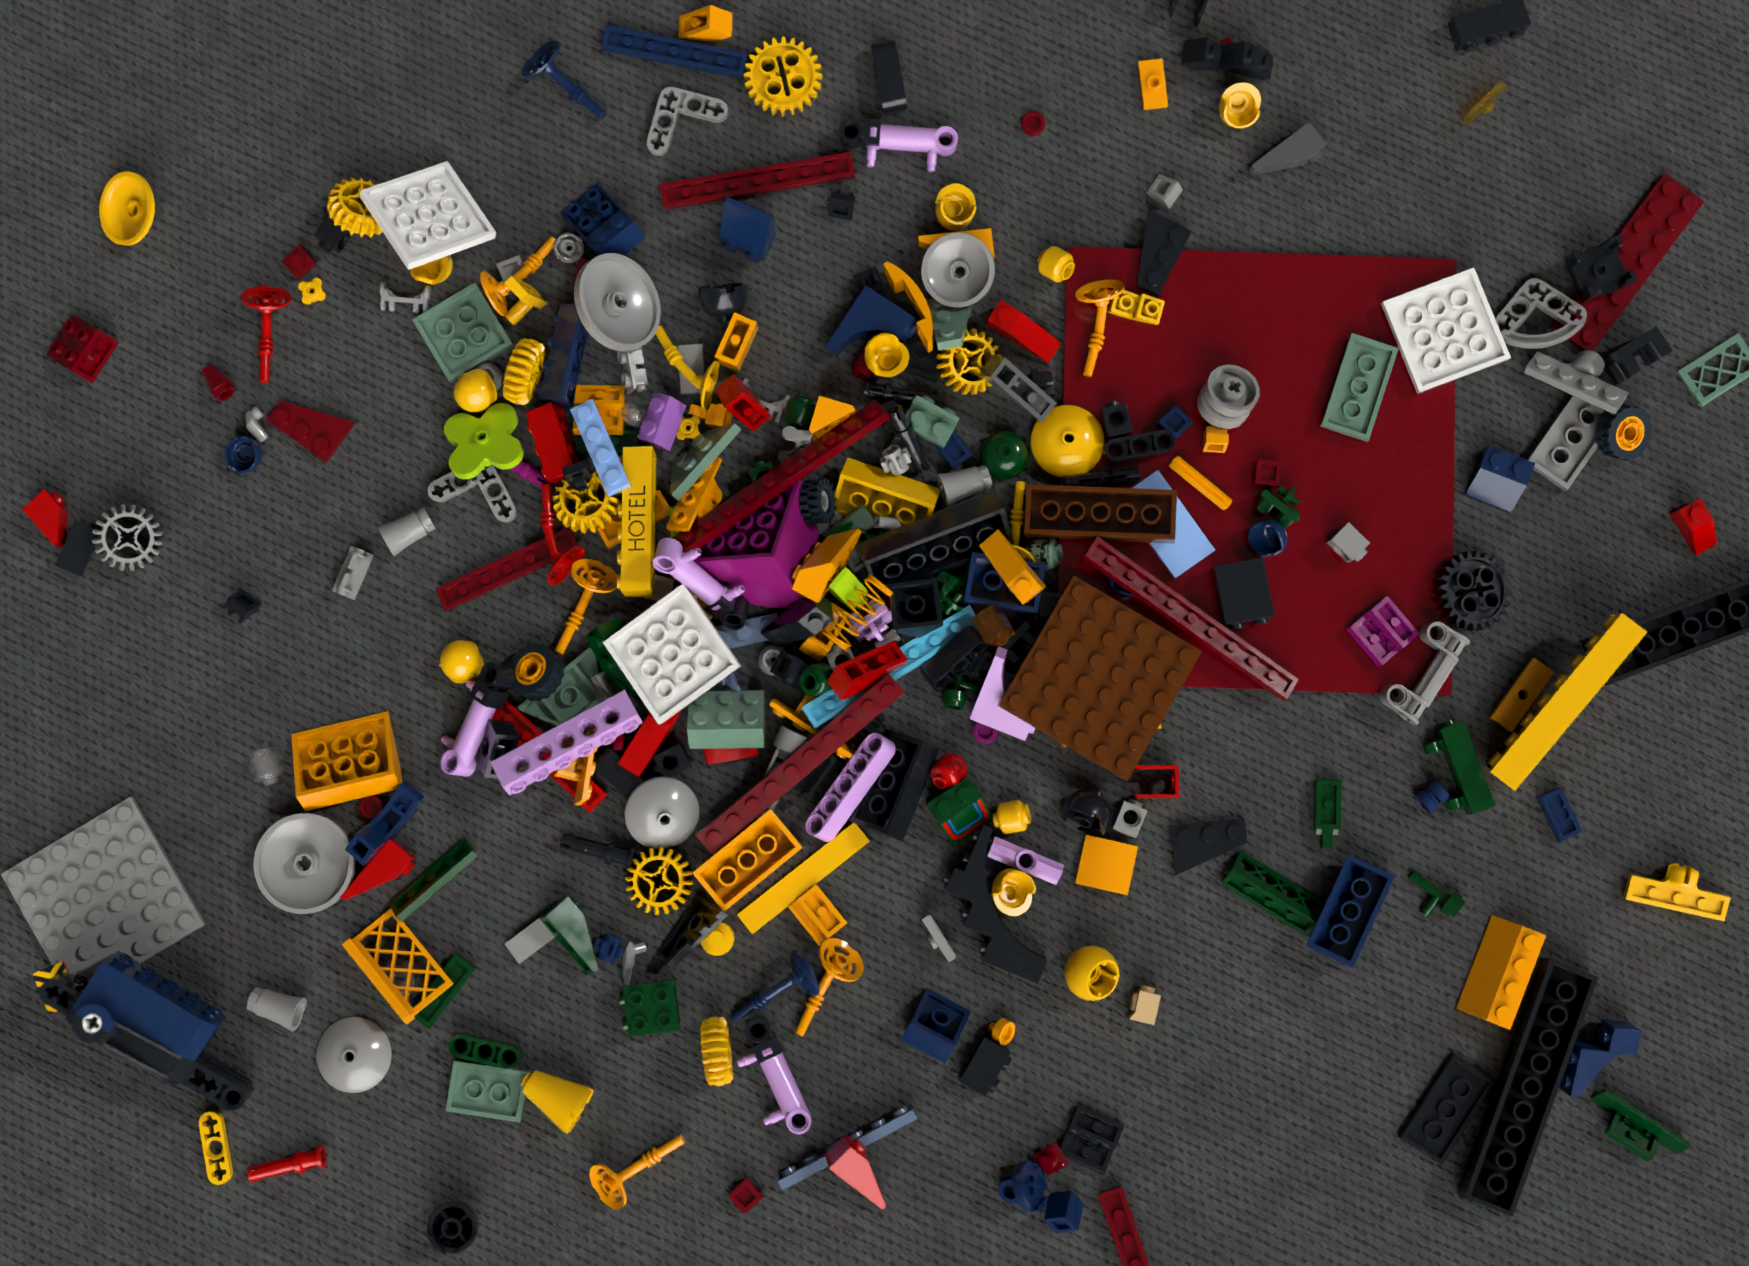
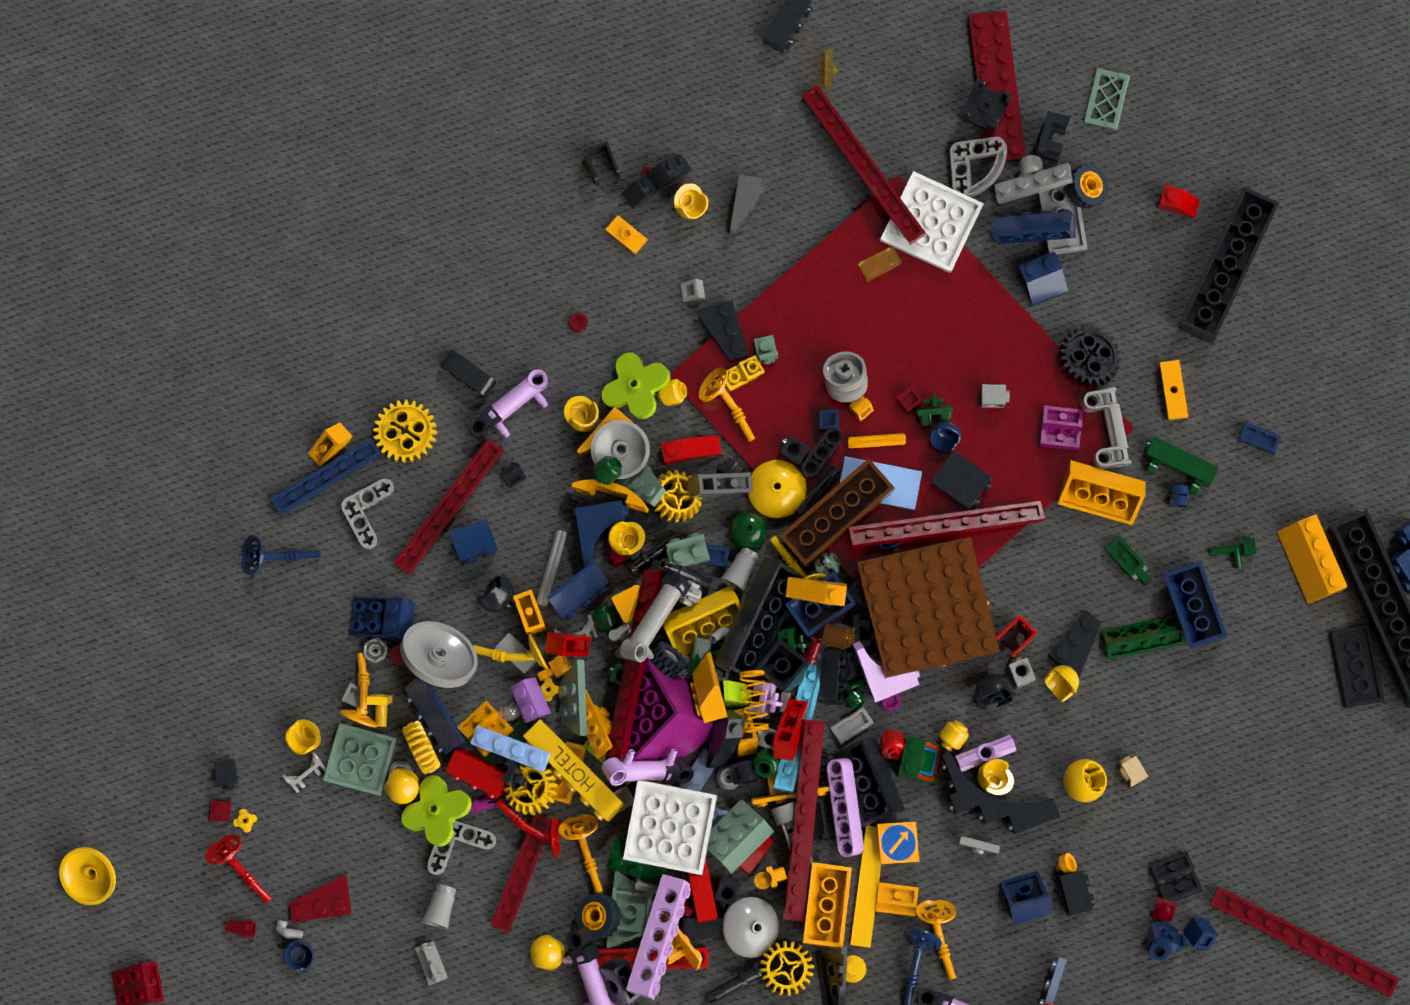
camera: 45 degrees left, 5 degrees down
(349, 210) = (229, 738): yellow gear -> none
(427, 215) = (276, 709): white plate -> none
(632, 377) = (486, 691): light grey hinge -> none
(720, 786) = (770, 878): none -> light orange hips
(796, 322) = (551, 567): none -> light grey axle
(798, 364) = (578, 591): none -> dark blue slope
(798, 461) = (638, 645): none -> light grey piece
(867, 865) = (898, 842): none -> piece
(927, 277) = (607, 470): none -> dark green head
(929, 719) = (851, 725): none -> light grey tile
(957, 618) = (813, 650): none -> dark red pin
(1029, 227) = (636, 385): none -> lime plant
(1106, 865) = (1034, 711): light orange slope -> none
(1158, 863) = (1062, 682): none -> yellow helmet
(1179, 305) = (766, 349): none -> sand green bracket
(1359, 387) = (914, 300): sand green plate -> none
(1360, 323) = (880, 263): none -> clear yellow plate
(1363, 726) = (1101, 492): none -> light orange slope
(1433, 220) = (863, 165): none -> dark red plate
(1537, 423) = (1035, 227): none -> dark blue slope
(1567, 700) = (1201, 373): yellow brick -> none
(1678, 893) = (1366, 420): yellow plate -> none

